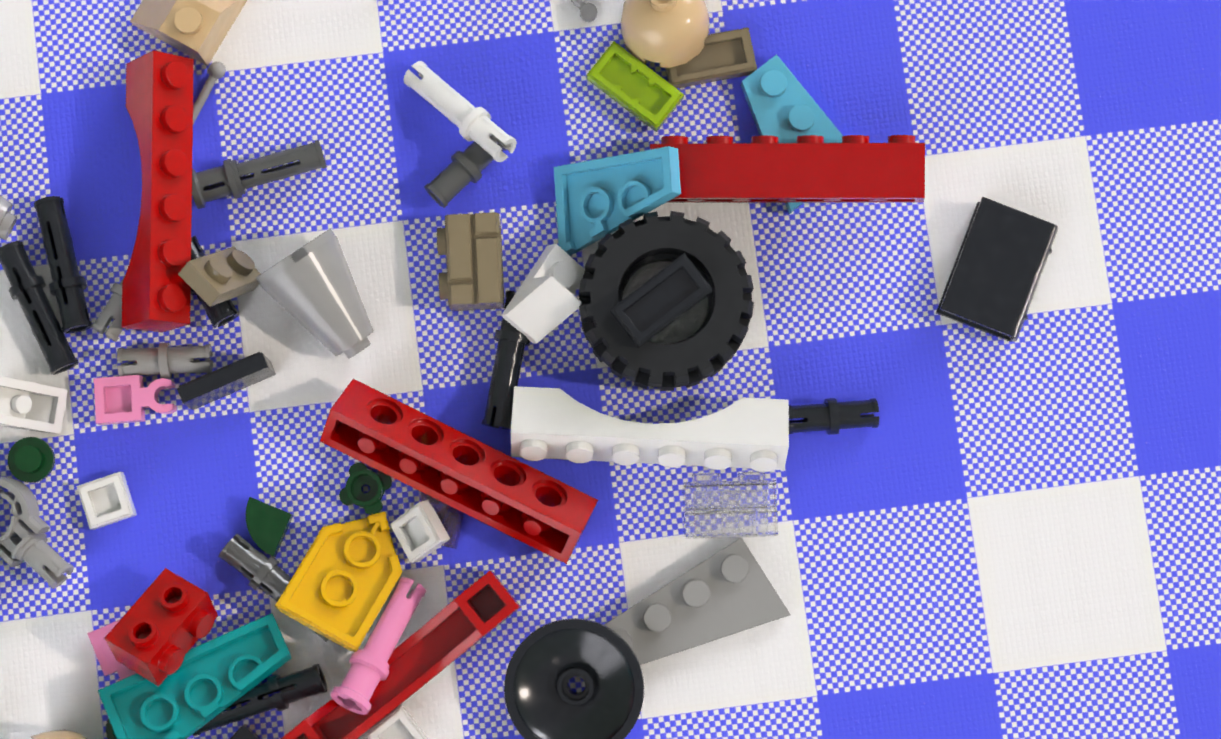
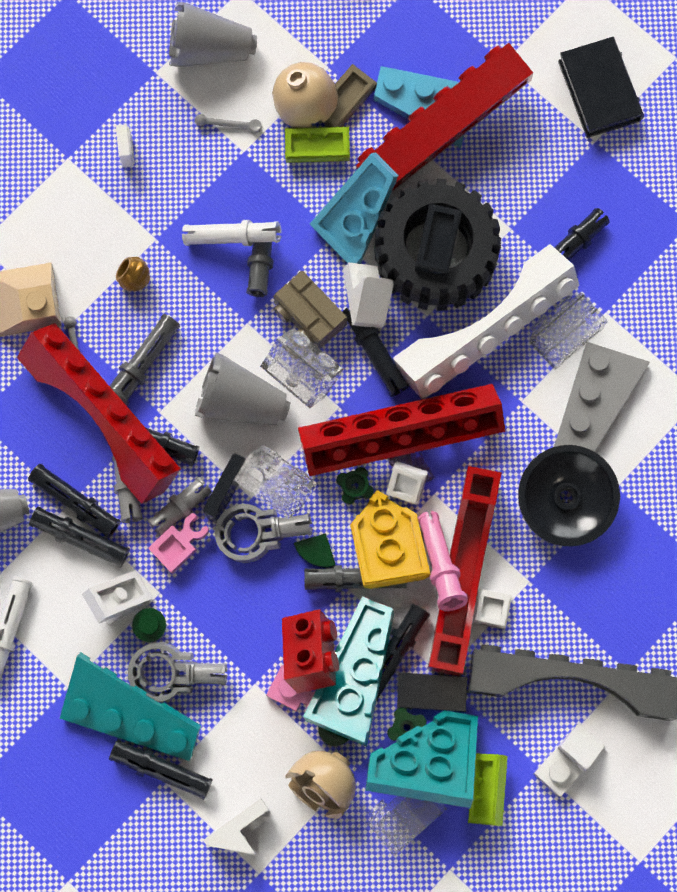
camera: 35 degrees left, 5 degrees down
(106, 500) = (212, 613): white tile -> none
(221, 275) = (175, 428): dark tan plate -> none
(244, 469) = (280, 528): none -> light grey pin
(281, 417) = (275, 481): none -> clear brick
(322, 71) = (133, 274): none -> pearl gold piece
(410, 317) = (301, 367): none -> clear brick

